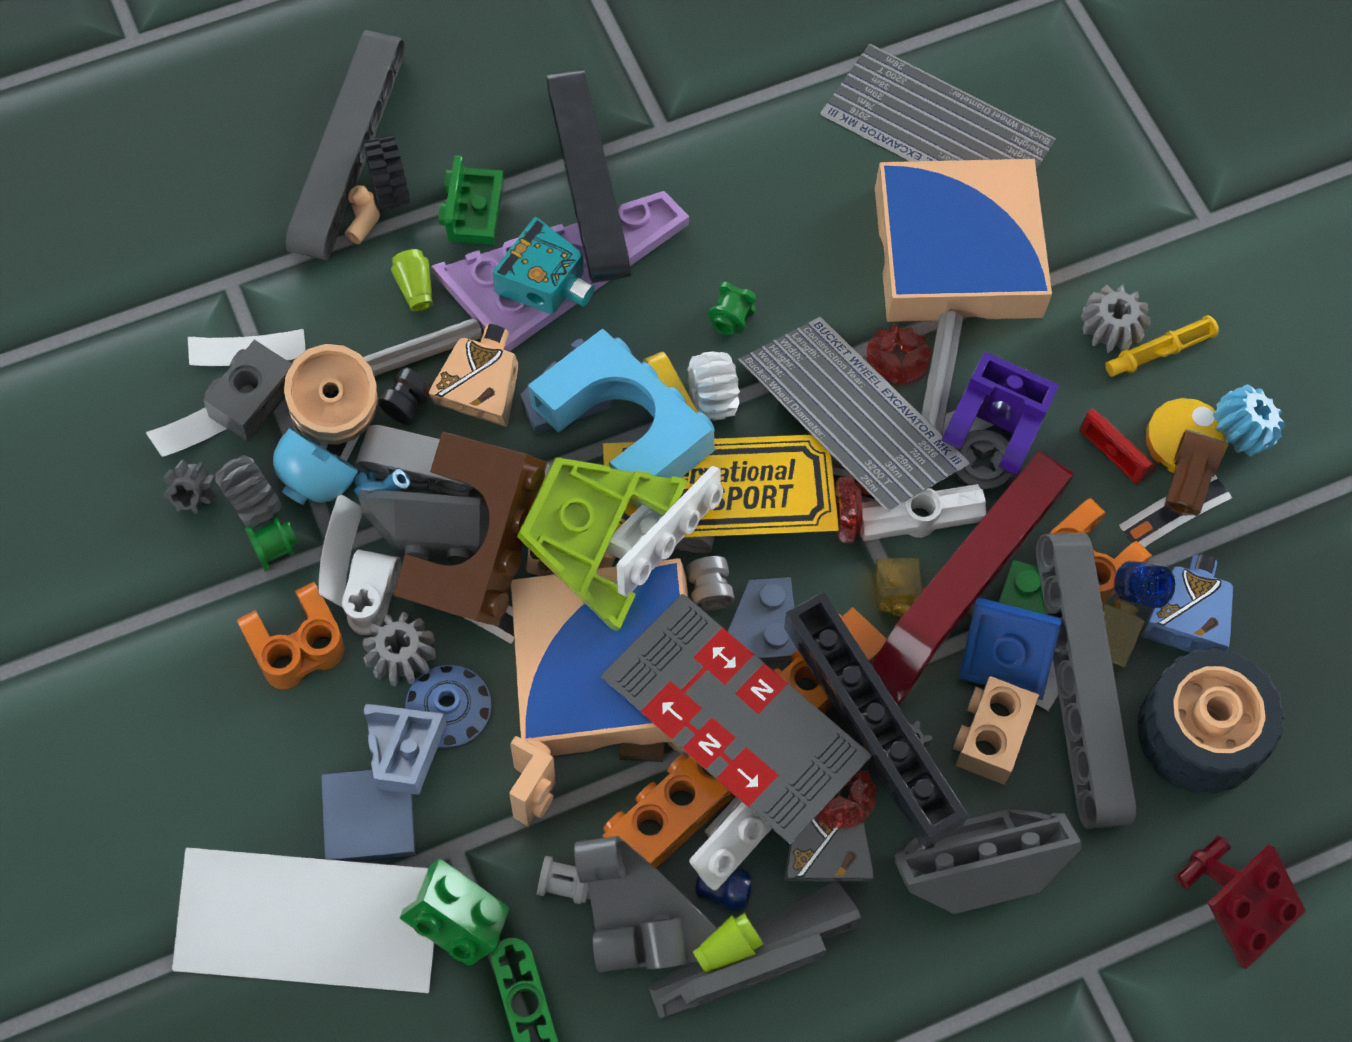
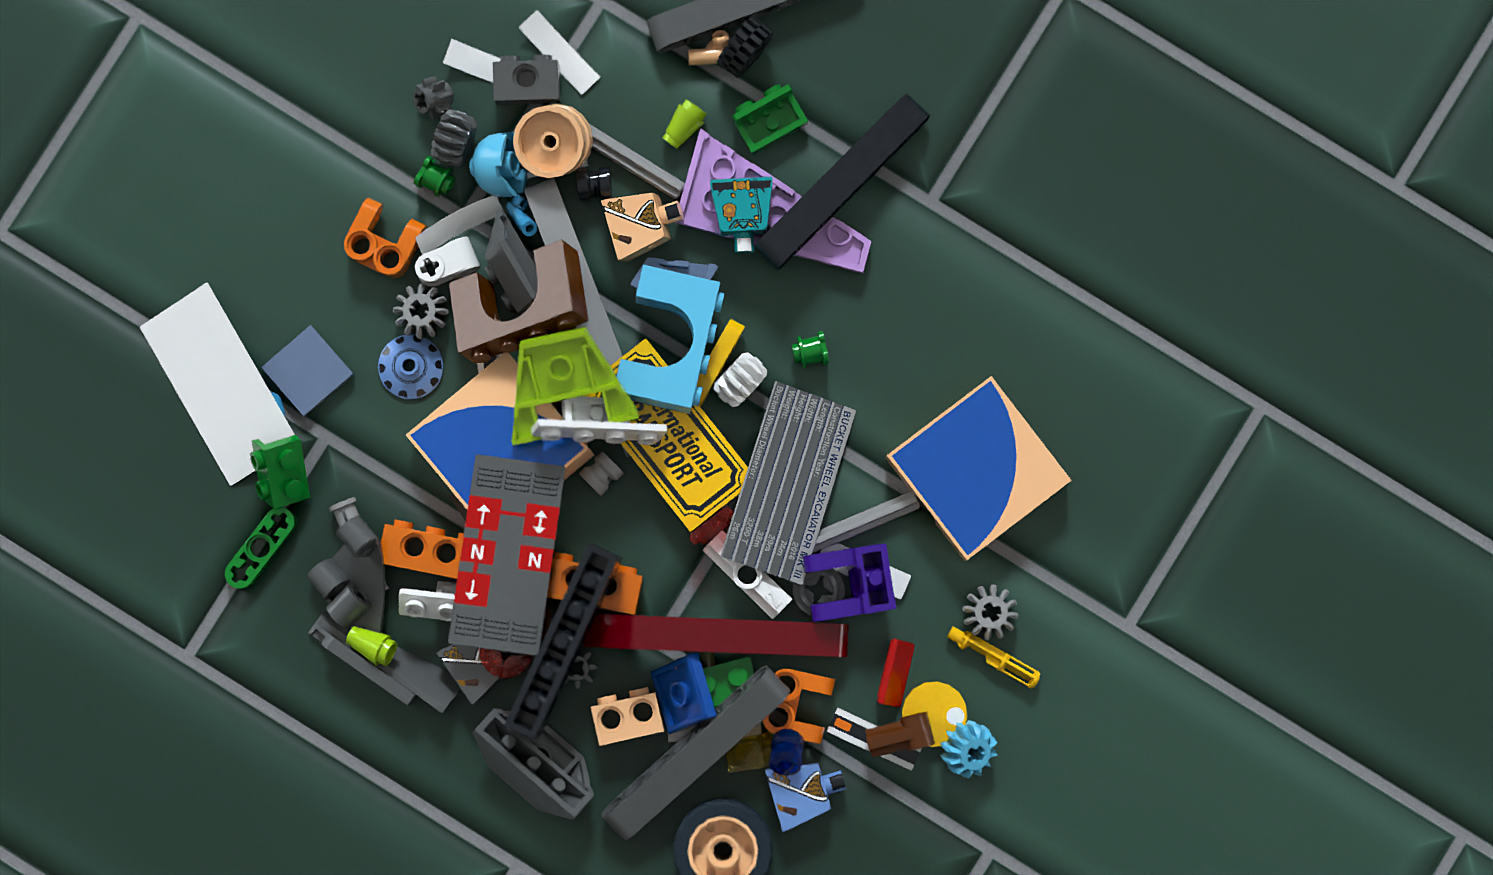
camera: 60 degrees right, 20 degrees up
(402, 745) = (358, 361): sand blue wing -> none
(532, 790) = (384, 463): light nougat bracket -> none
(733, 892) = (412, 626): clear blue piece -> none
(761, 619) = (601, 522): sand blue wing -> none
(887, 364) = (859, 498): clear red gear -> none
(897, 584) = (688, 593): clear yellow bracket -> none
(926, 116) = (1073, 384): sticker -> none

